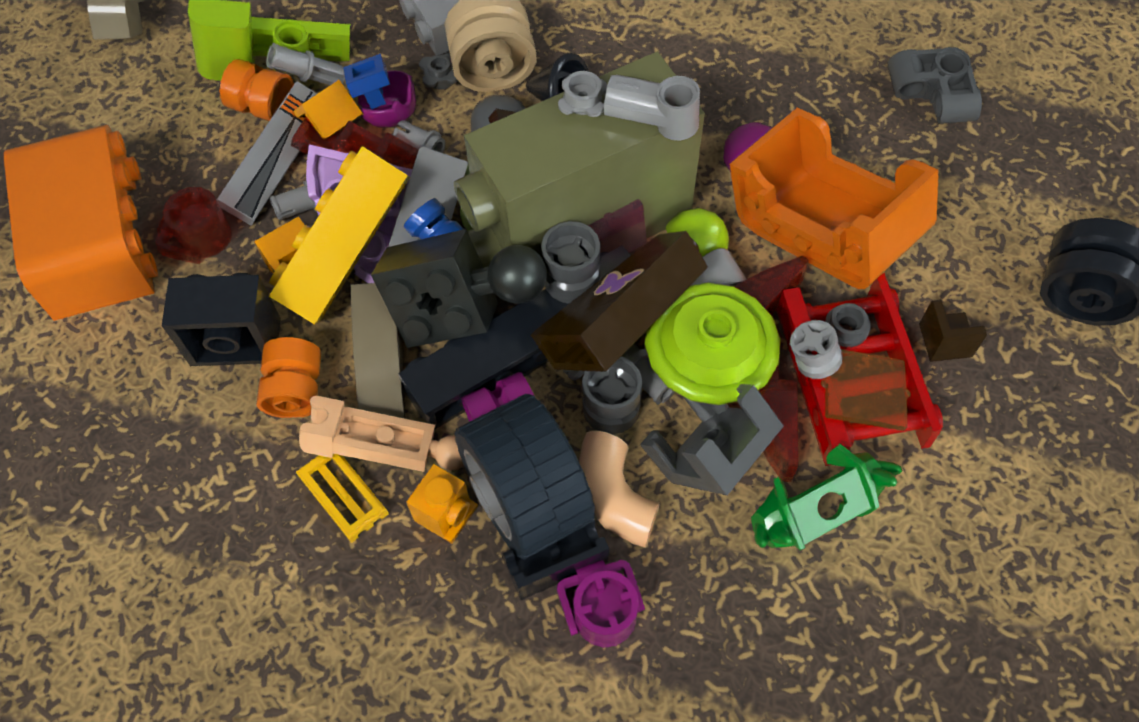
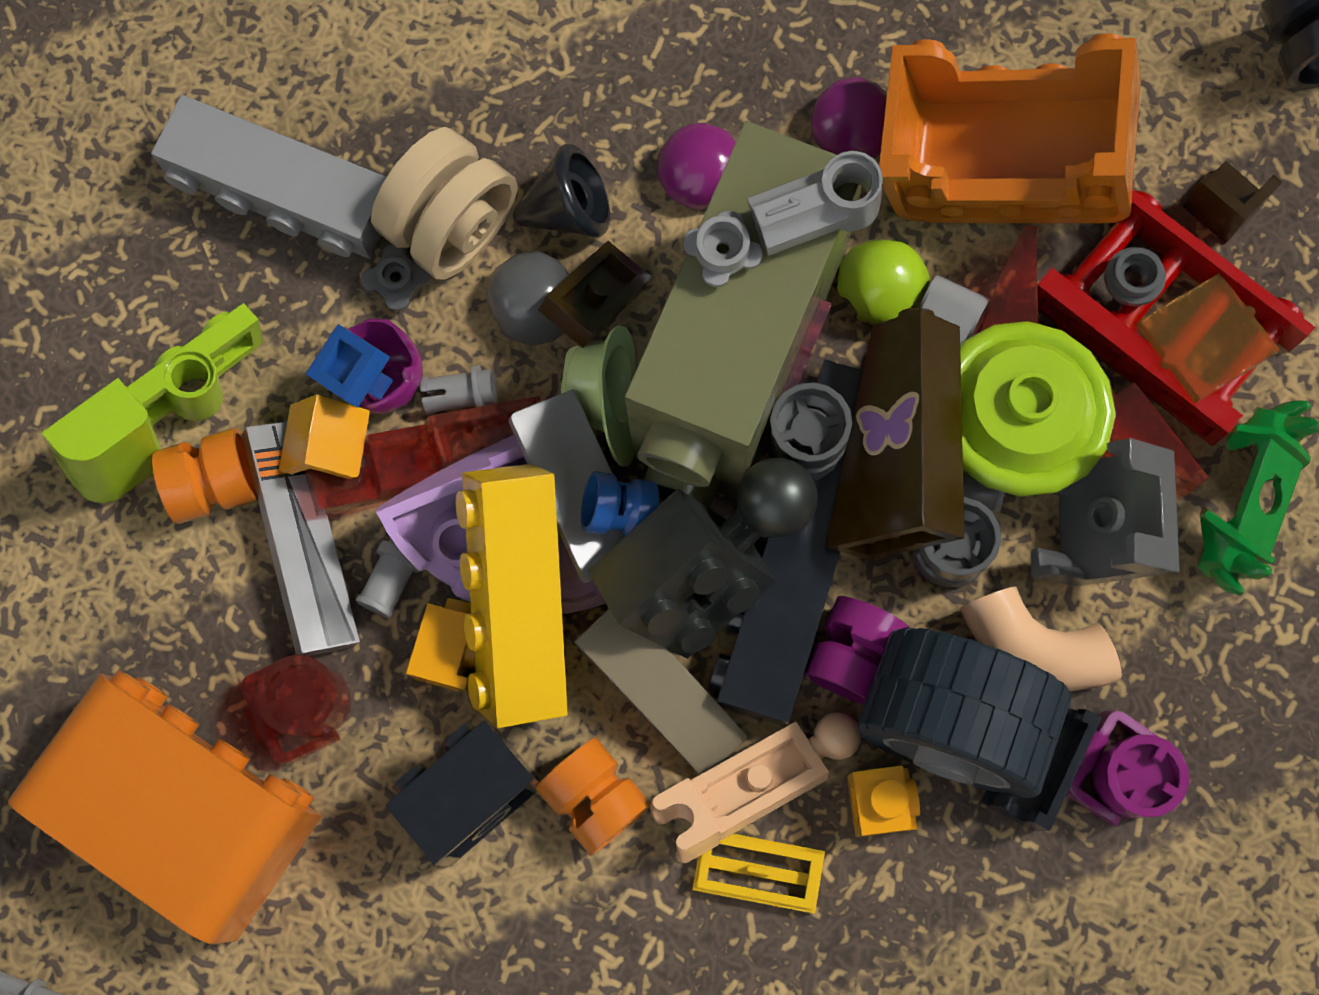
camera: 35 degrees left, 15 degrees up
(304, 65) = (236, 400): light grey axle -> none
(817, 337) = (1130, 329): light grey wheel -> none

